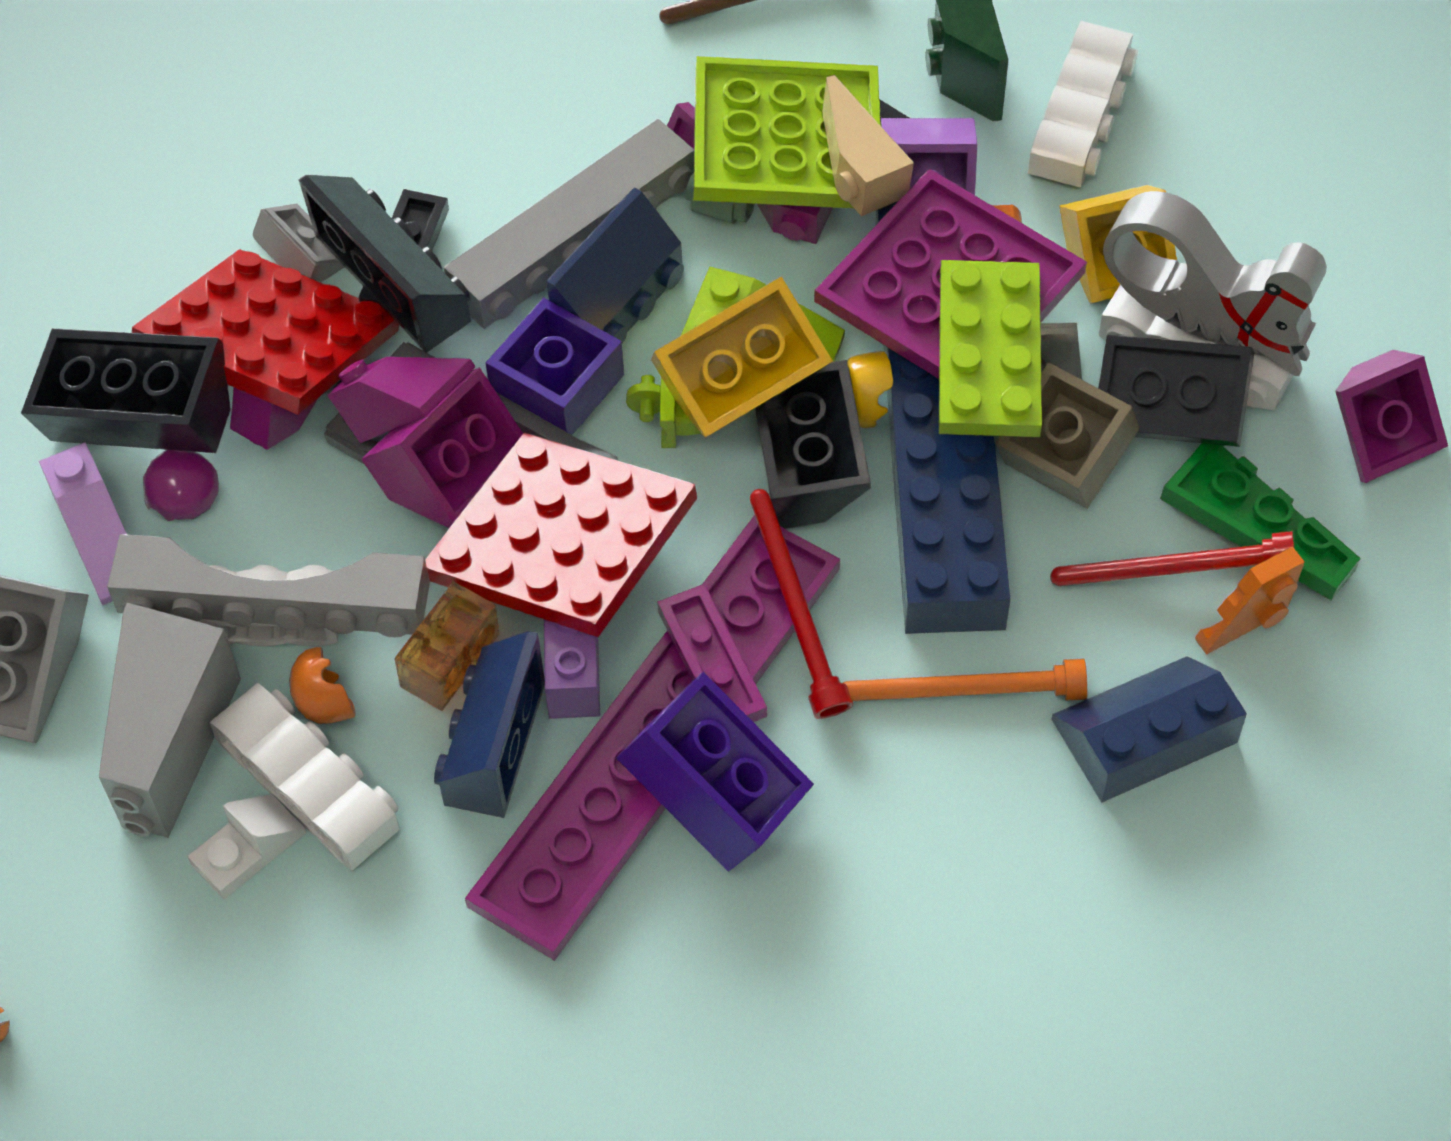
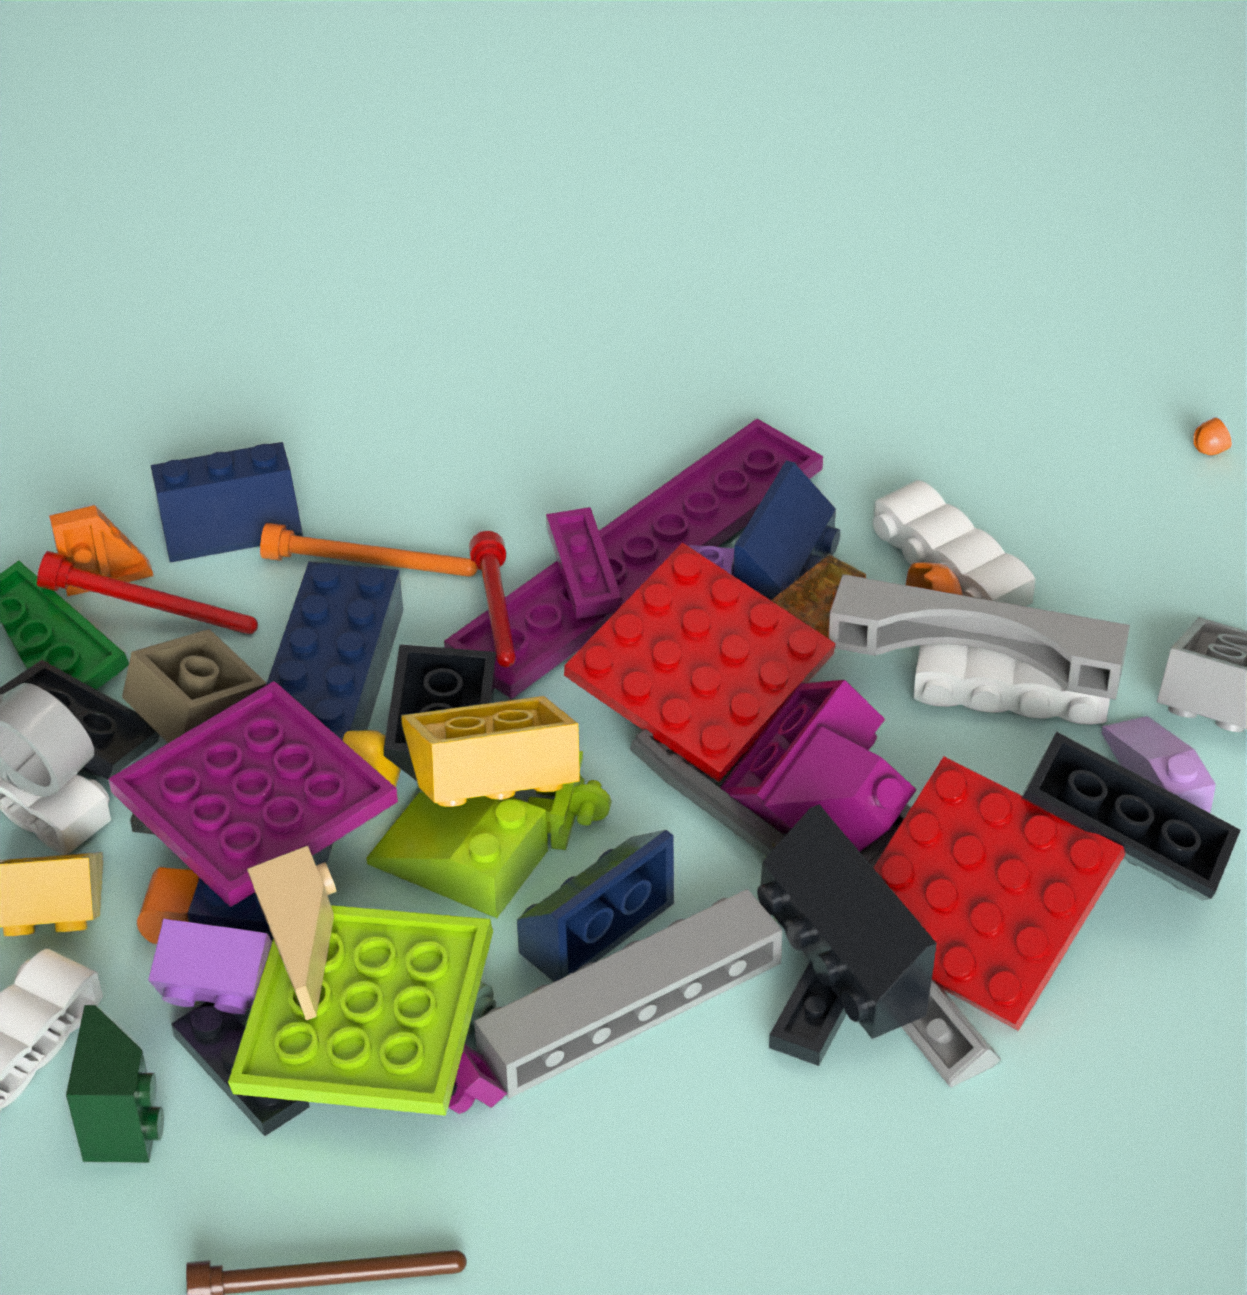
camera: 170 degrees left, 15 degrees down
(158, 730) = (1078, 558): light grey slope -> none
(253, 838) = (1010, 519): white slope -> none
(556, 366) = (699, 810): dark purple brick -> none
(716, 772) = (605, 474): dark purple slope -> none
(990, 349) = (243, 703): lime plate -> none

